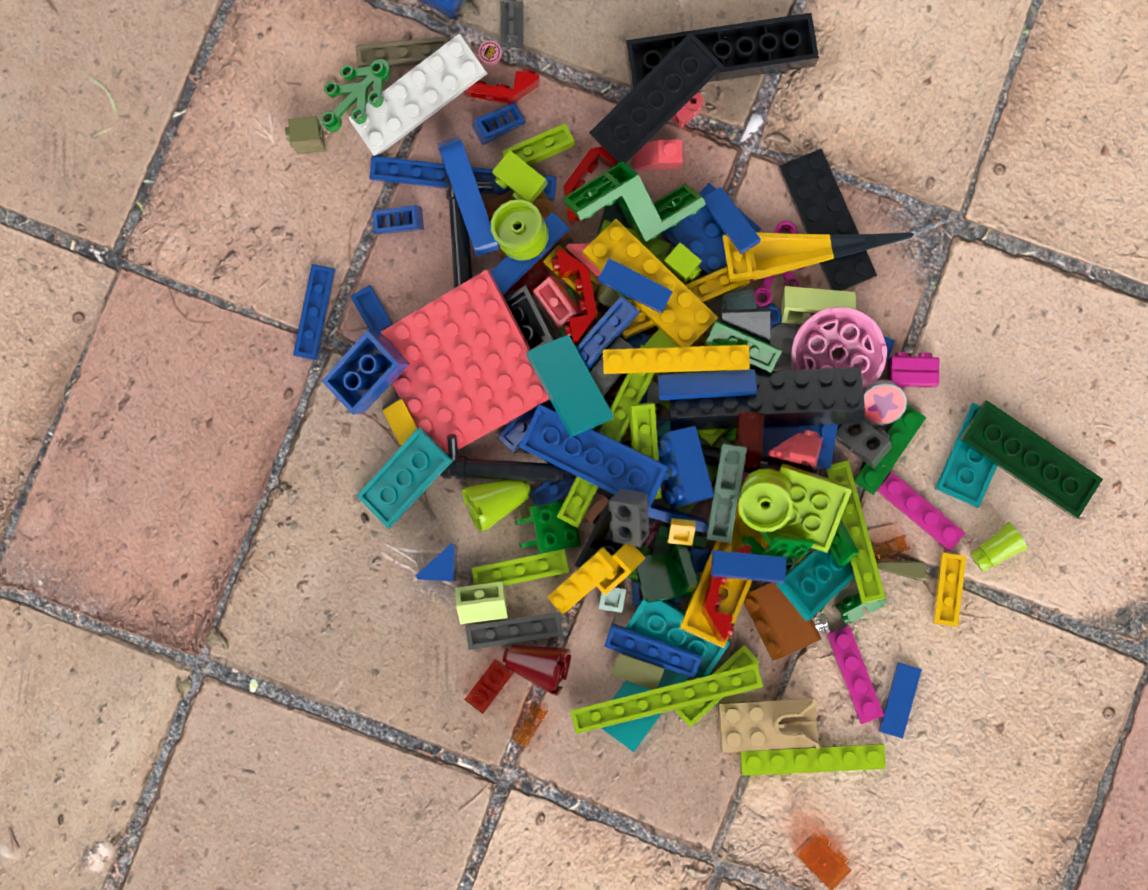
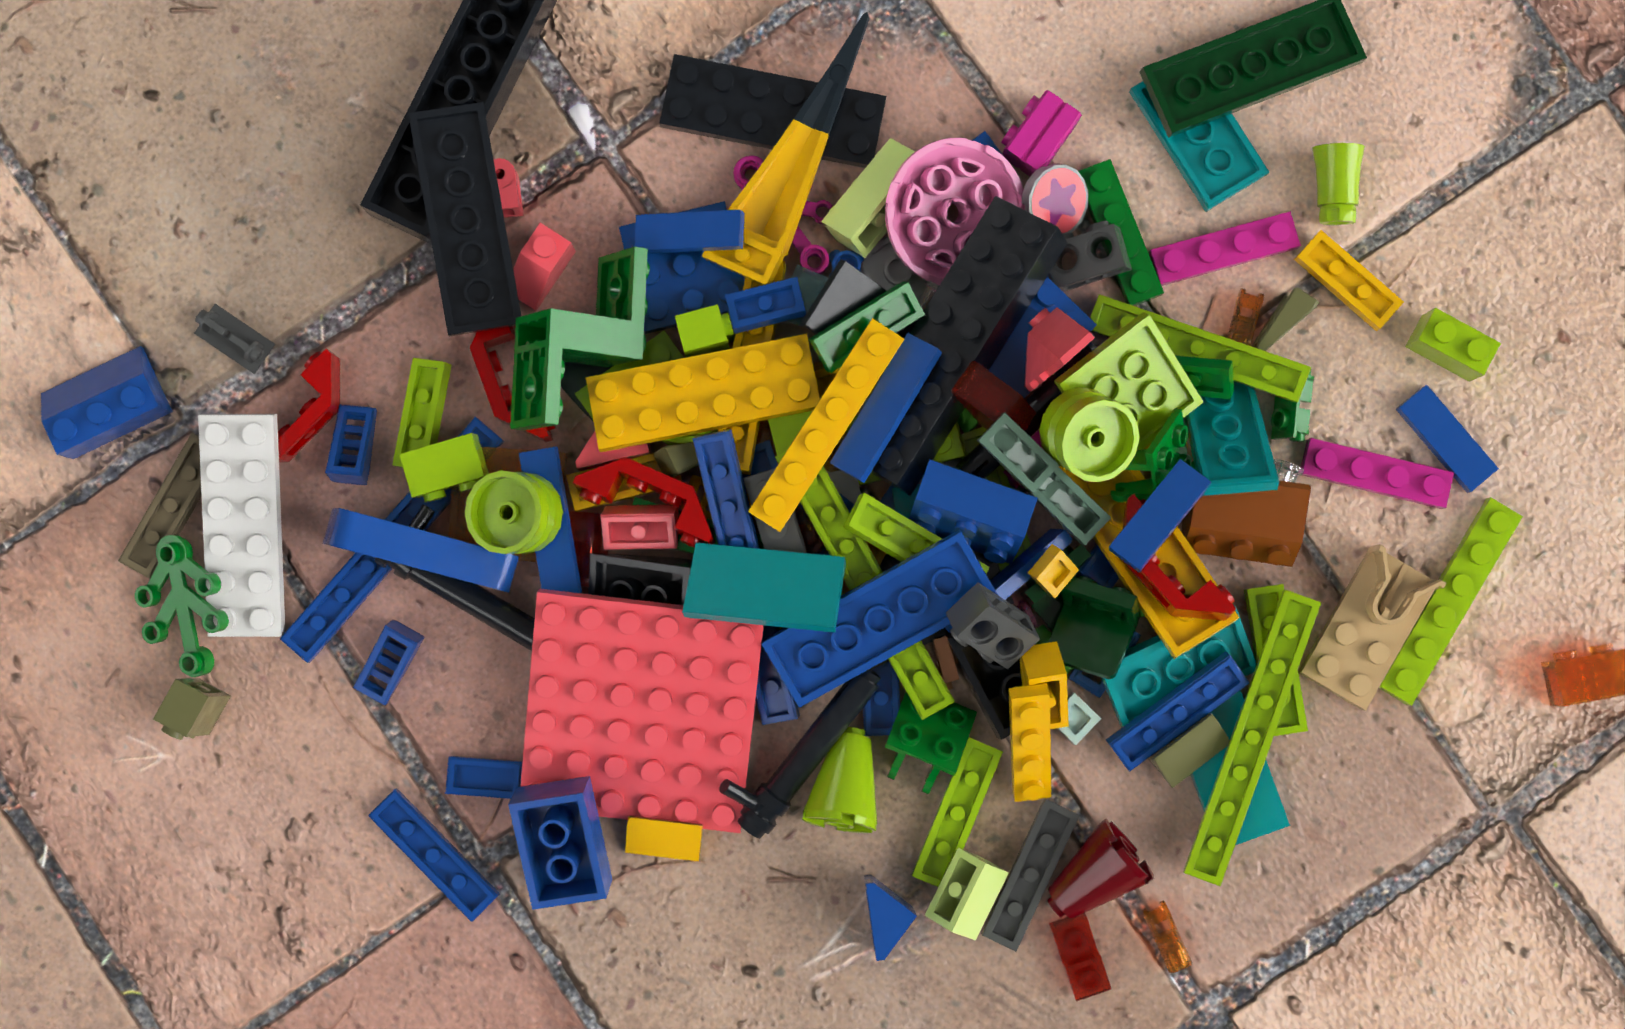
camera: 55 degrees left, 0 degrees up
(404, 477) = (735, 884): teal tile -> none
(490, 53) = (252, 392): tile -> none
(635, 286) = (692, 412): blue tile -> none
(719, 286) = (765, 305): none -> blue plate
(952, 668) = (1453, 344): none -> lime brick

